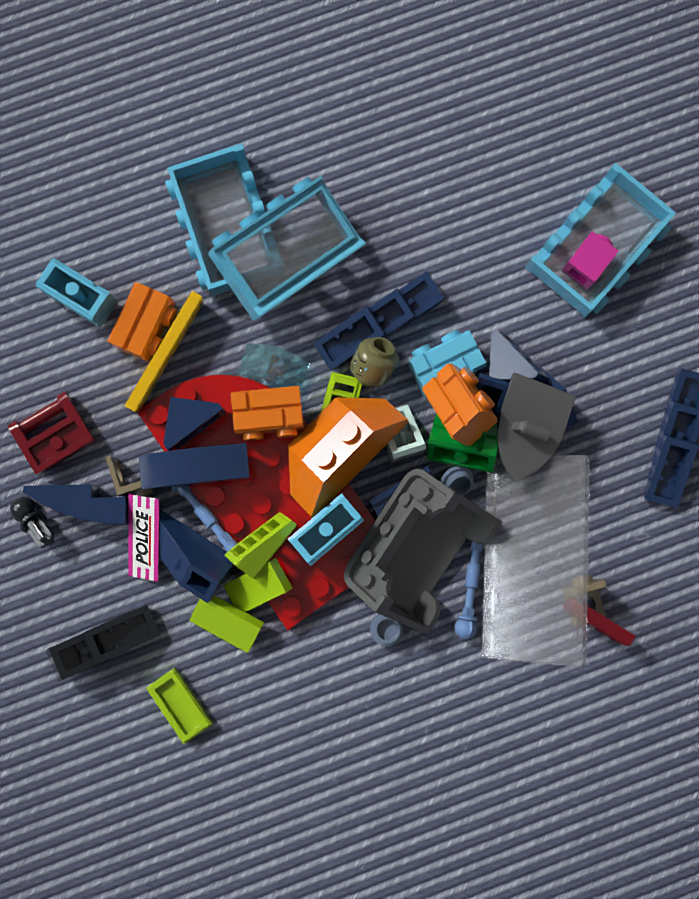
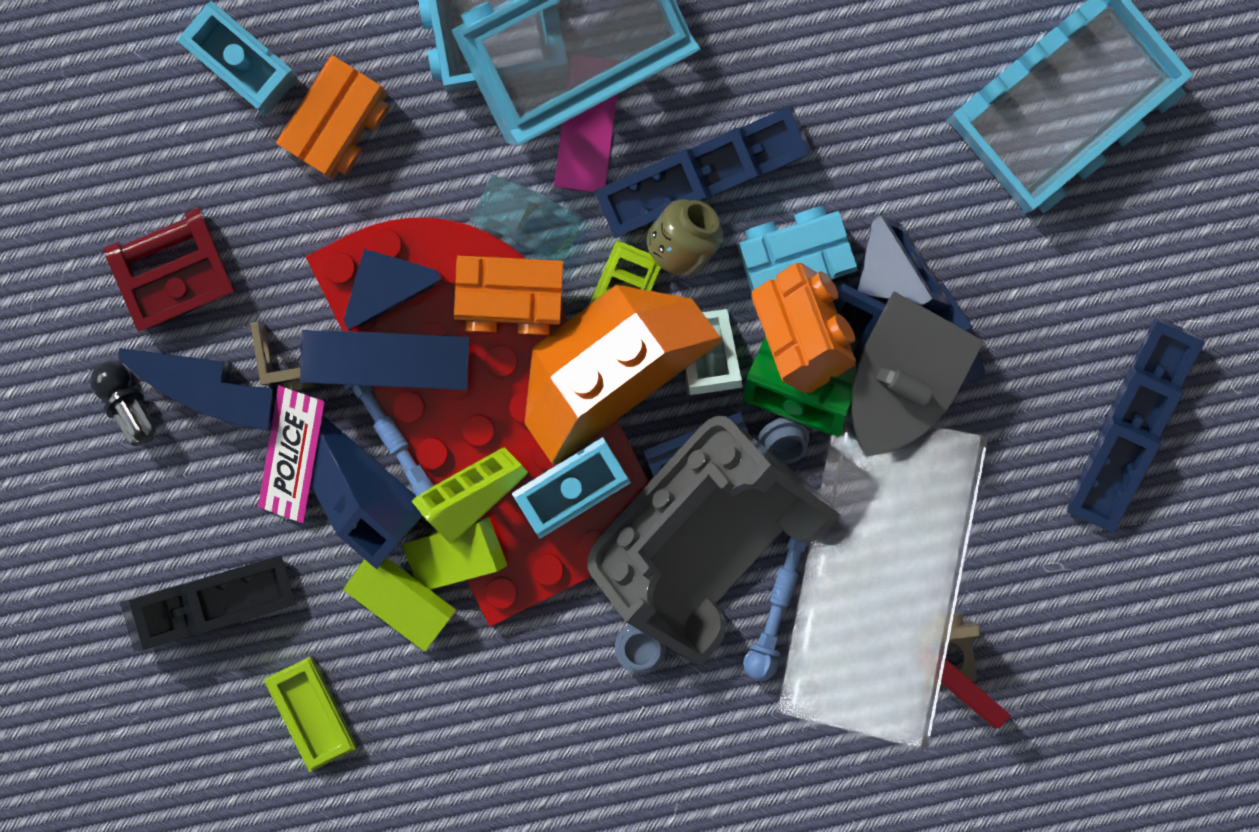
camera: 15 degrees right, 5 degrees up
(164, 352) = (361, 172): yellow tile -> none
(303, 316) = (586, 148): none -> dark pink sticker
(590, 260) = (1047, 128): dark pink brick -> none

